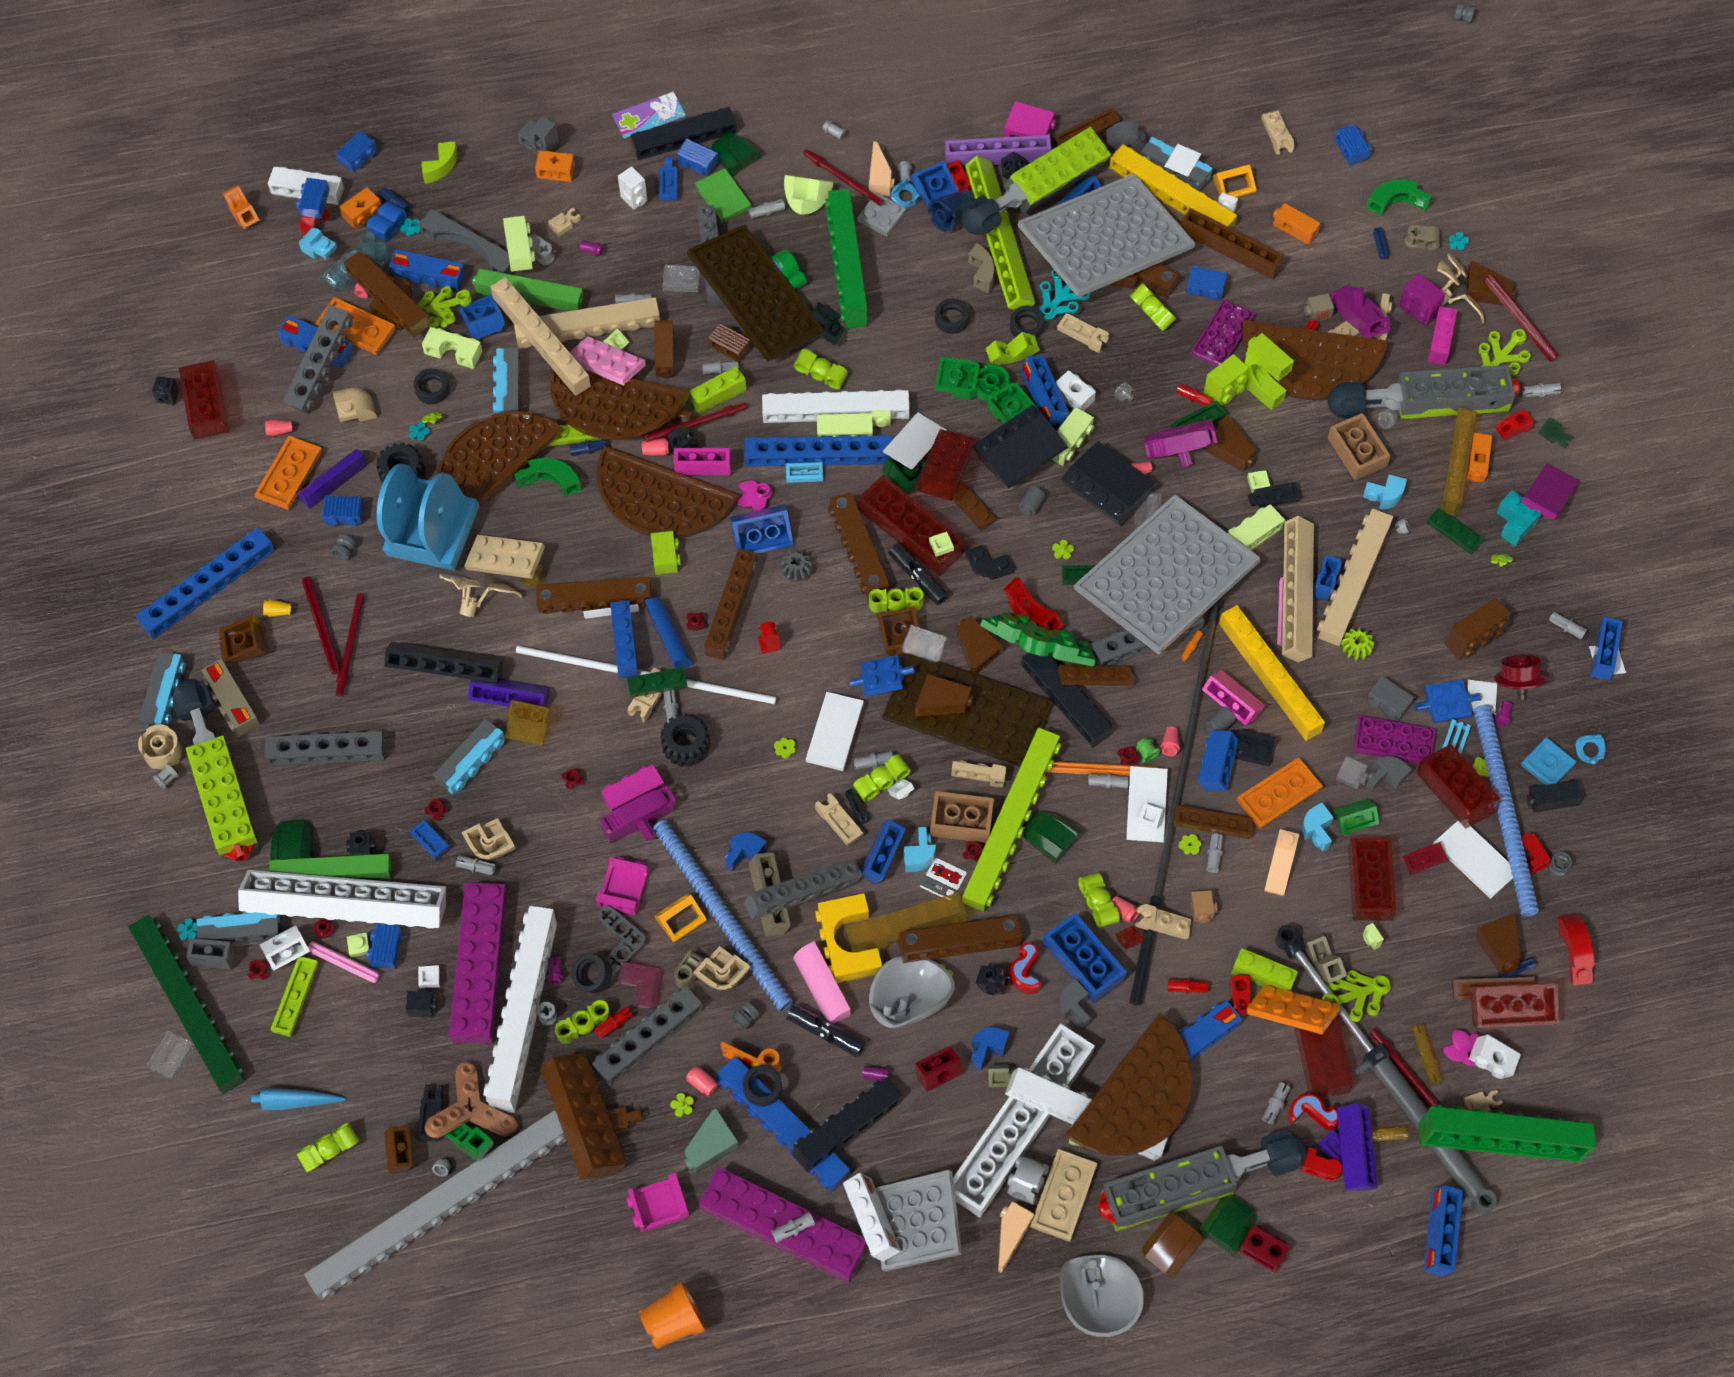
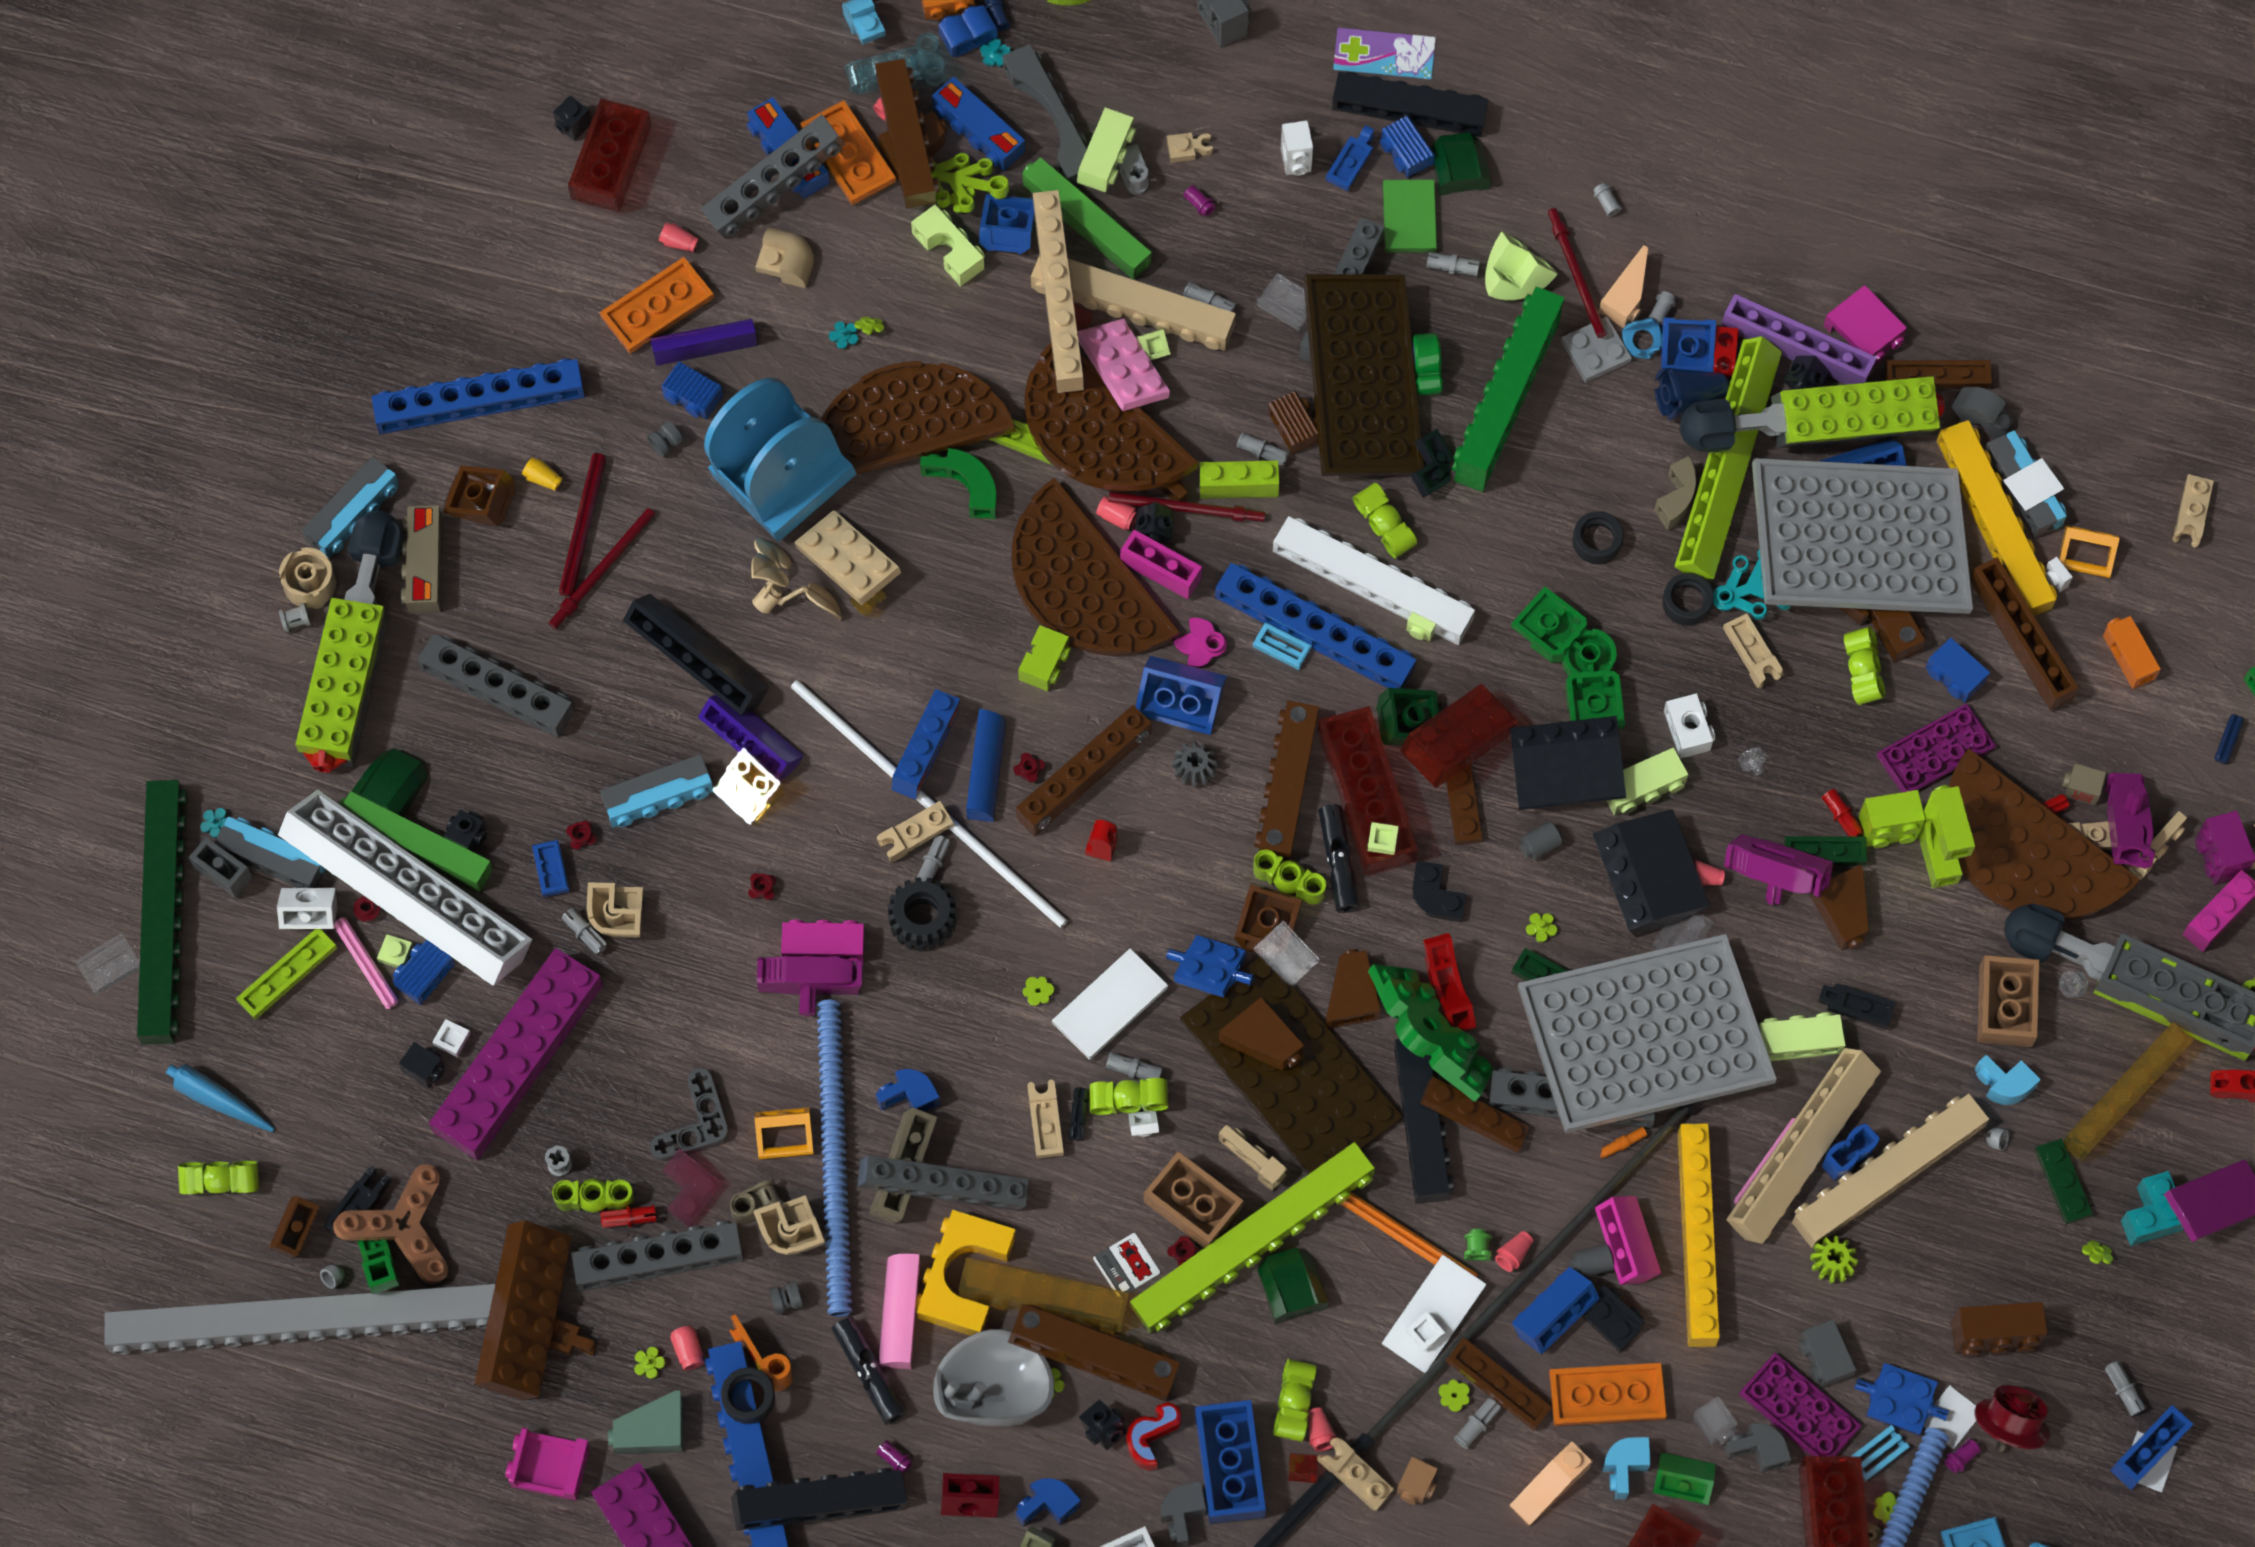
camera: 30 degrees right, 5 degrees up
(257, 964) = (257, 918): dark red plate -> none
(400, 455) = (795, 354): black tyre -> none
(431, 374) = (893, 265): black tyre -> none
(507, 380) = (988, 327): piece -> none
(521, 1009) = (525, 1143): white brick -> none
(554, 971) = (597, 1116): magenta pin -> none
(555, 166) = (1220, 64): orange brick -> none
(578, 970) = (625, 1130): black tyre -> none
(587, 447) = (1034, 466): dark blue axle -> none
(591, 594) = (924, 665): reddish brown piece -> none
(606, 612) = (927, 695): white sticker -> none
(623, 885) = (740, 1055): dark pink panel -> none
(657, 682) = (930, 822): dark green plate -> none
(664, 348) = (1205, 389): reddish brown slope -> none
(844, 424) = (1368, 612): yellowish green brick -> none
(882, 851) = (1069, 1189): blue brick -> none
(913, 441) = (1441, 680): white sticker -> none
(922, 856) = (1116, 1222): medium azure brick -> none
(1014, 351) = (1654, 628): lime brick -> none
(1044, 389) = (1649, 704): blue brick -> none
(1107, 780) = (1404, 1256): light grey pin -> none
(1131, 751) = (1450, 1232): dark red plate -> none
(1258, 480) = (1850, 973): yellowish green plate -> none
(1479, 457) = (2159, 1102): orange brick -> none

